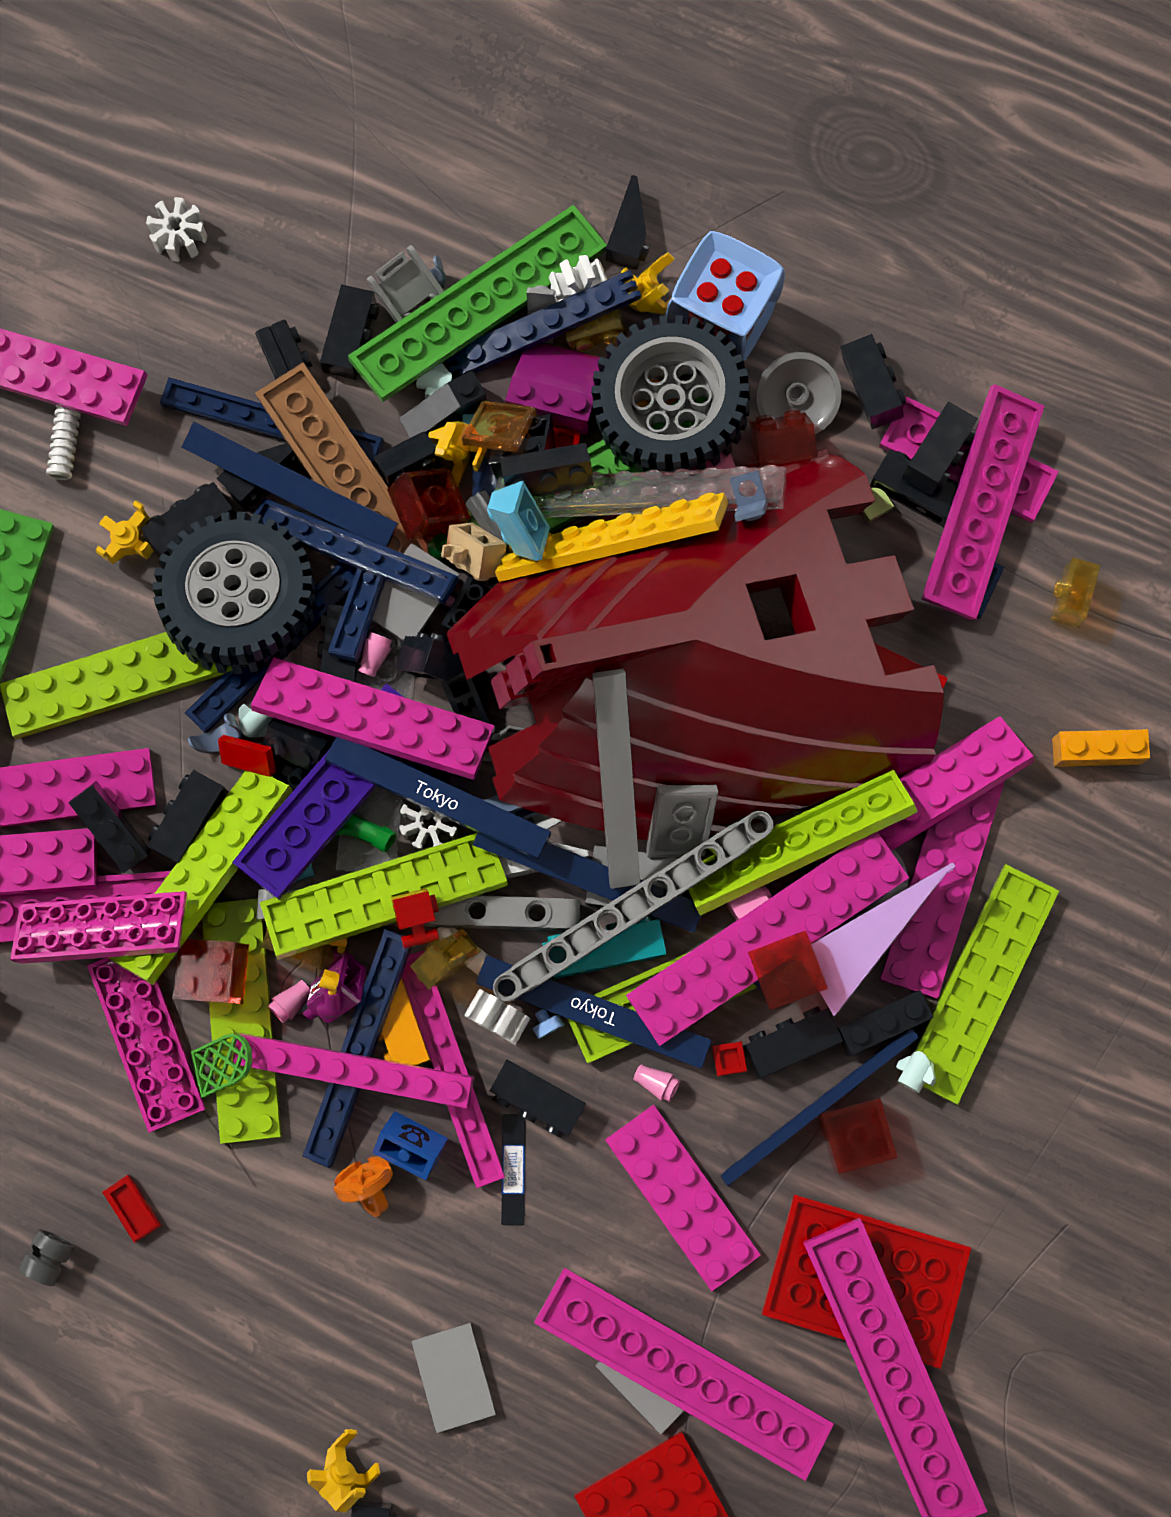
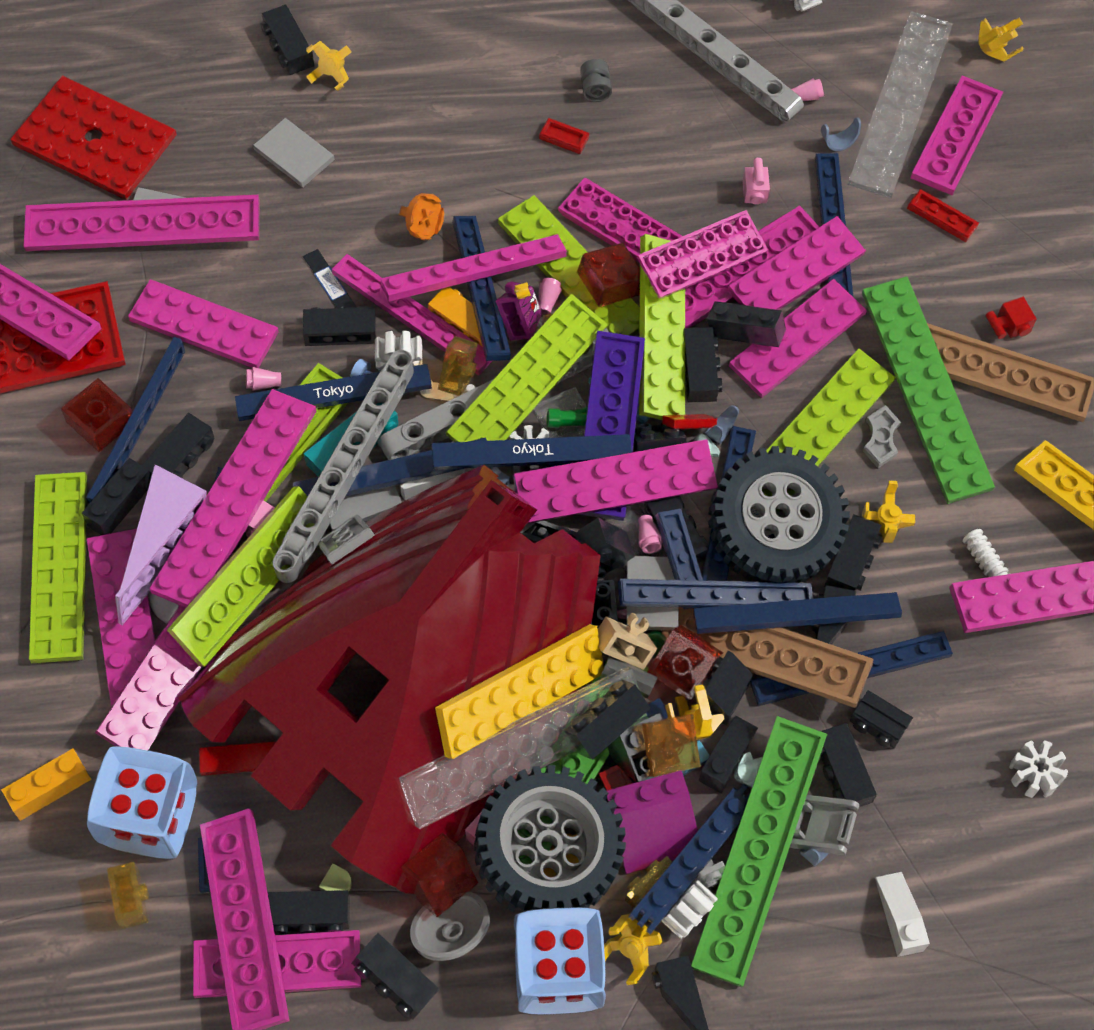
camera: 145 degrees right, 15 degrees down
(52, 643) = (881, 446): none -> light grey tile
(203, 1088) = (569, 222): bright green window -> none
(393, 183) = (902, 915): none -> white slope
(410, 1145) = (406, 252): blue brick -> none
(413, 911) = (495, 366): red brick -> none
(519, 520) = (599, 661): medium azure slope -> none
(616, 777) = (404, 505): light grey tile -> none
(729, 1058) = (219, 419): red plate -> none
(749, 507) = (423, 760): sand blue bracket -> none
(788, 970) = (204, 468): clear red brick -> none
(916, 1071) = (75, 474): light aqua piece -> none
(941, 449) = (302, 942): black brick -> none
(1023, 659) = (142, 802): none -> light blue piece

